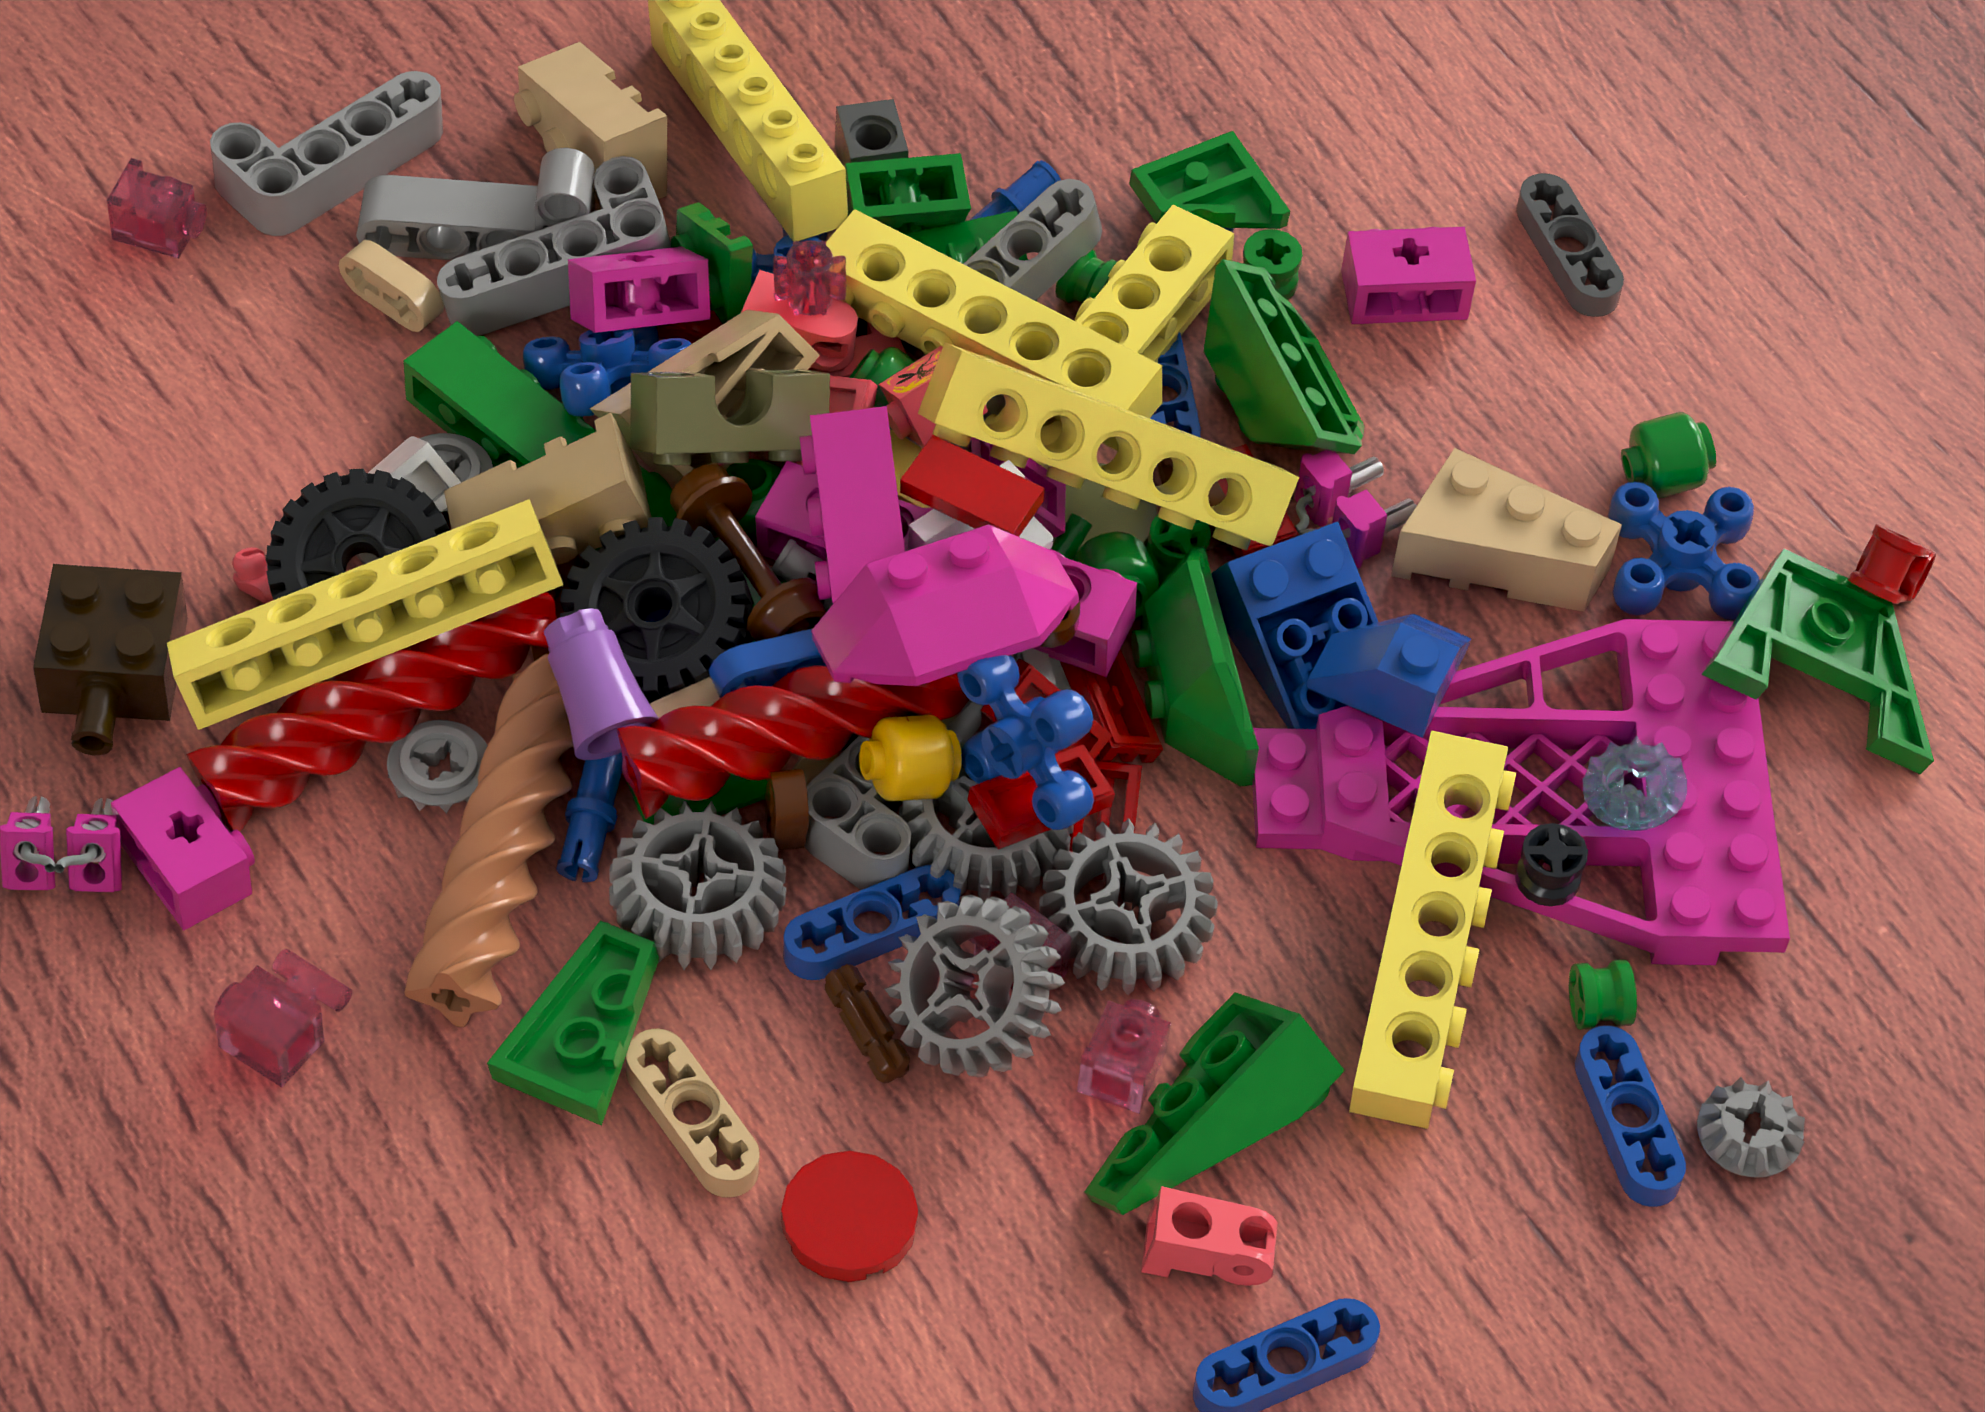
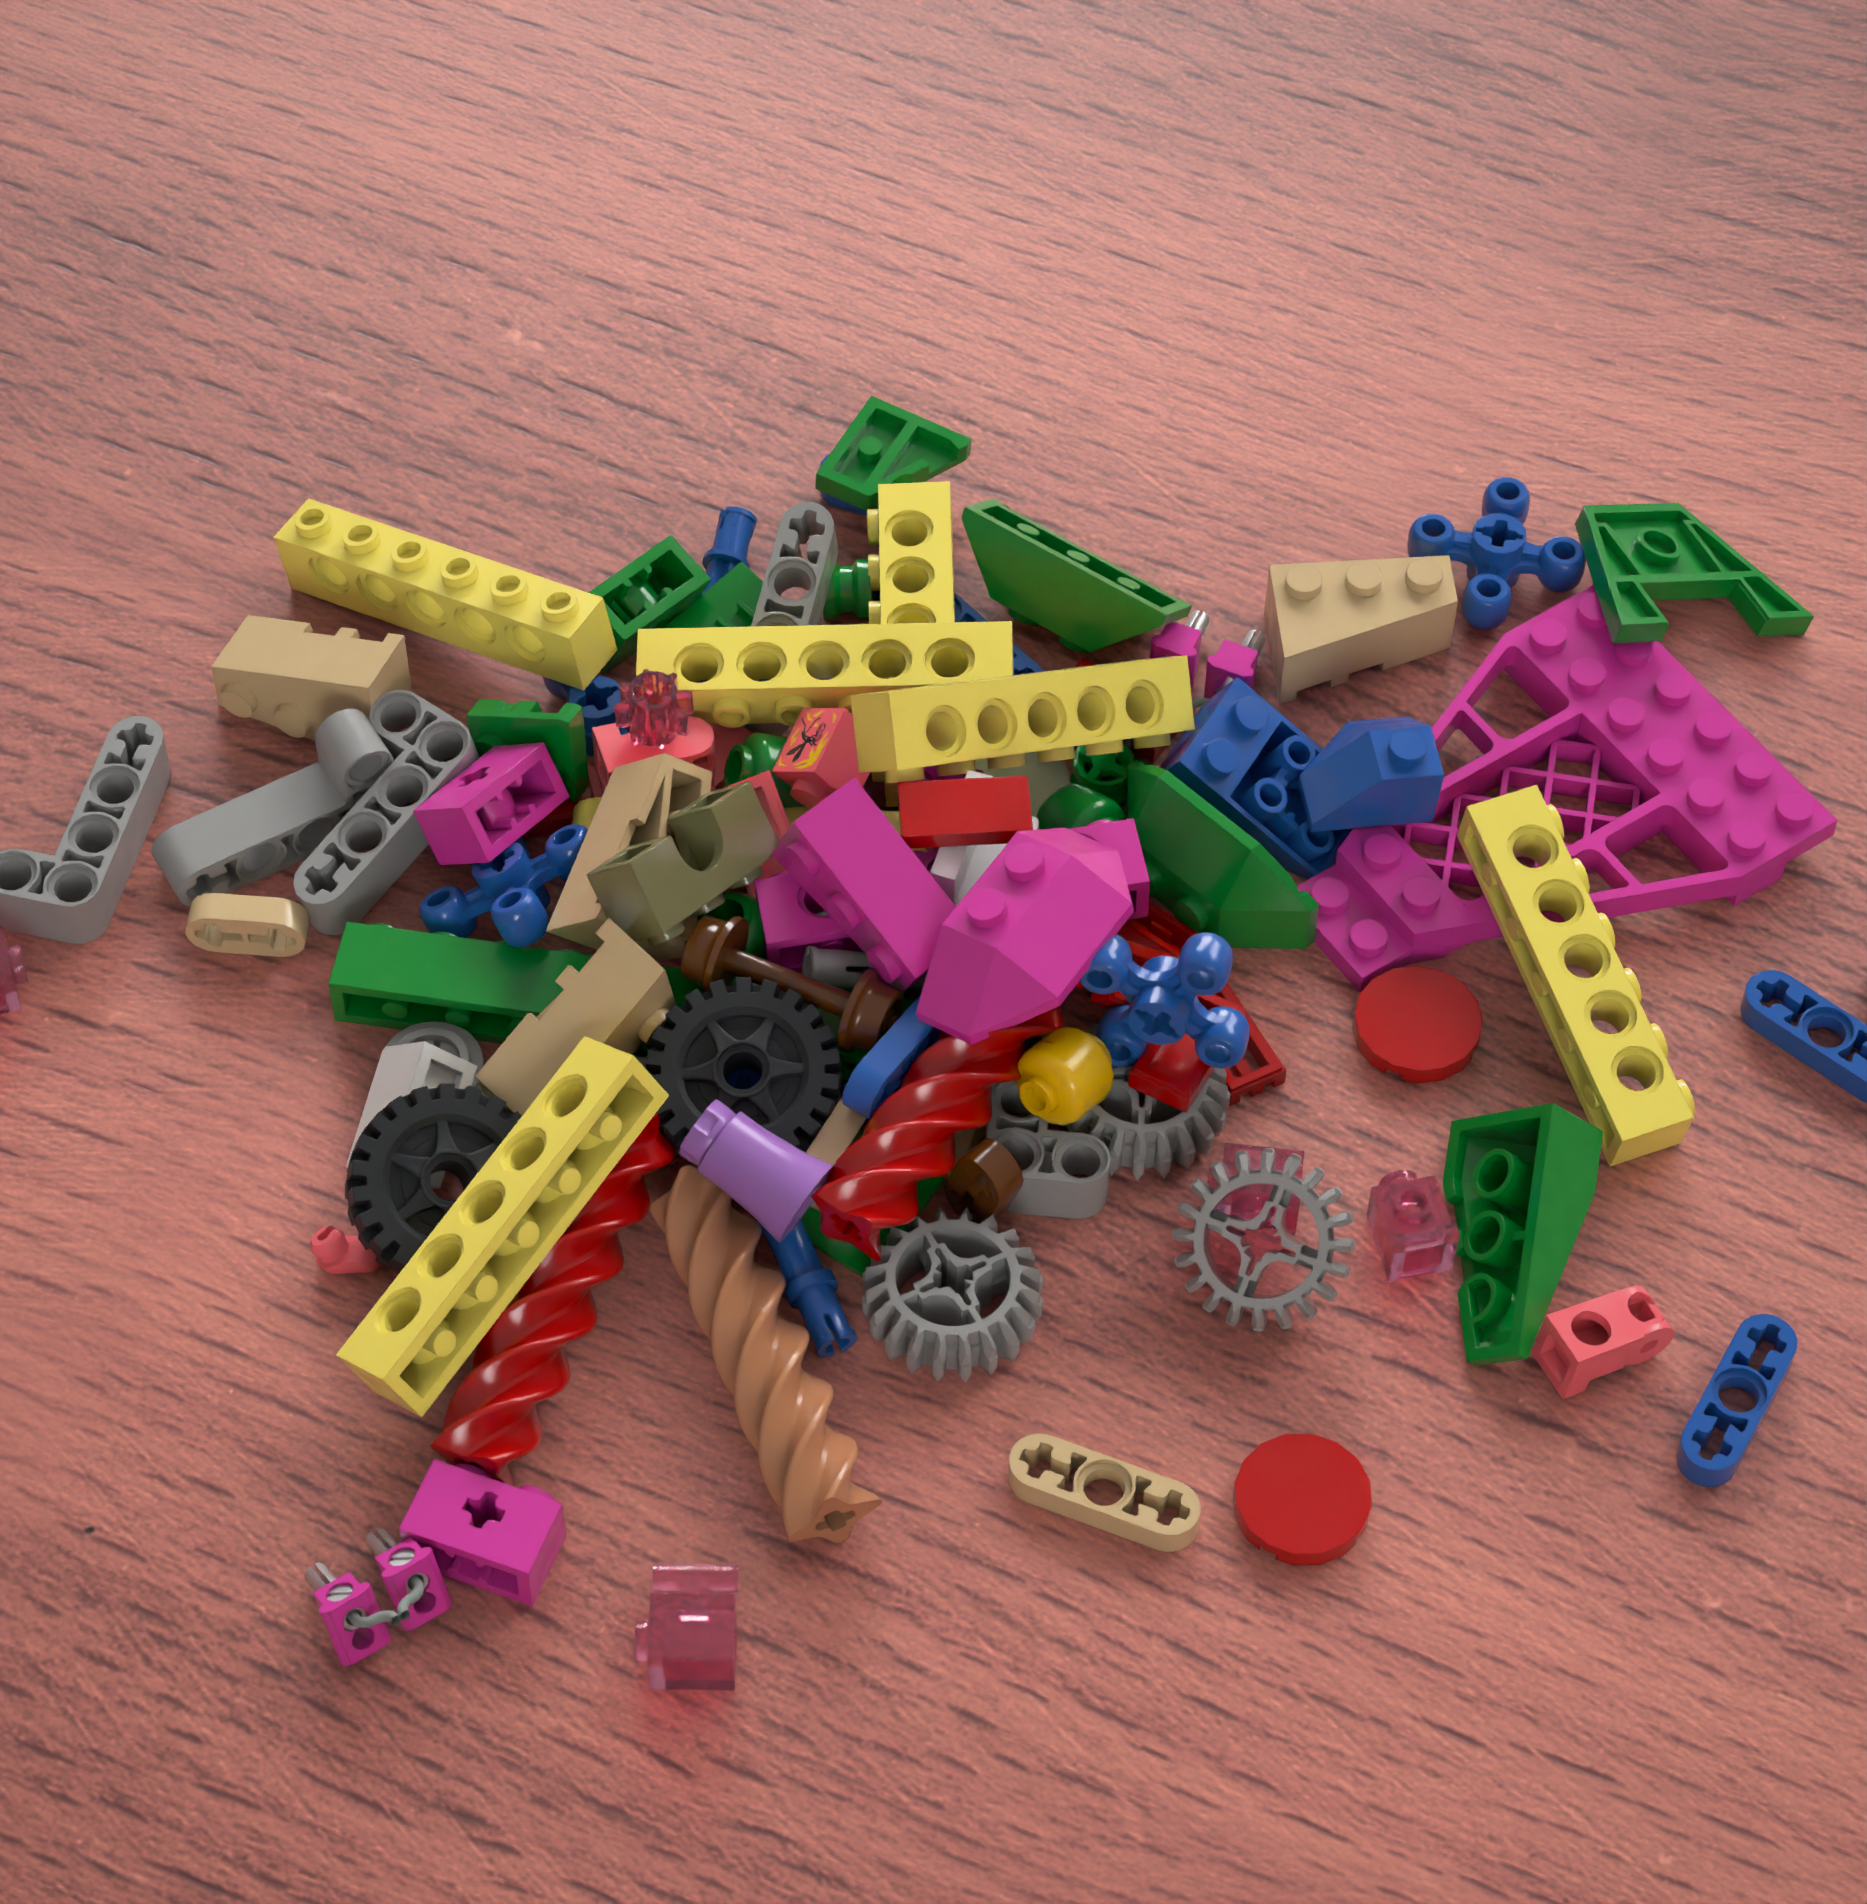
camera: 30 degrees left, 0 degrees up
(107, 648) = (271, 1393): dark brown brick -> none
(425, 747) = (663, 1306): light grey gear -> none
(581, 1025) = (956, 1476): green wing -> none
(867, 1023) = (1182, 1327): reddish brown axle -> none
(869, 132) = (567, 558): dark grey brick -> none
(887, 898) = (1113, 1266): blue beam -> none
(1171, 886) = (1306, 1065): light grey gear -> none
(1275, 248) = (976, 483): green wheel -> none
(1278, 899) = (1417, 1023): none -> red tile
(1408, 275) = (1097, 443): dark pink brick -> none
(1567, 858) = (1617, 854): black wheel -> none
(1569, 267) = (1232, 367): dark grey beam -> none
(1602, 994) = (1731, 951): green wheel -> none
(1624, 805) = (1642, 783): clear light blue gear -> none
(1669, 454) = (1423, 478): green head -> none
(1892, 566) = (1661, 474): red piece -> none

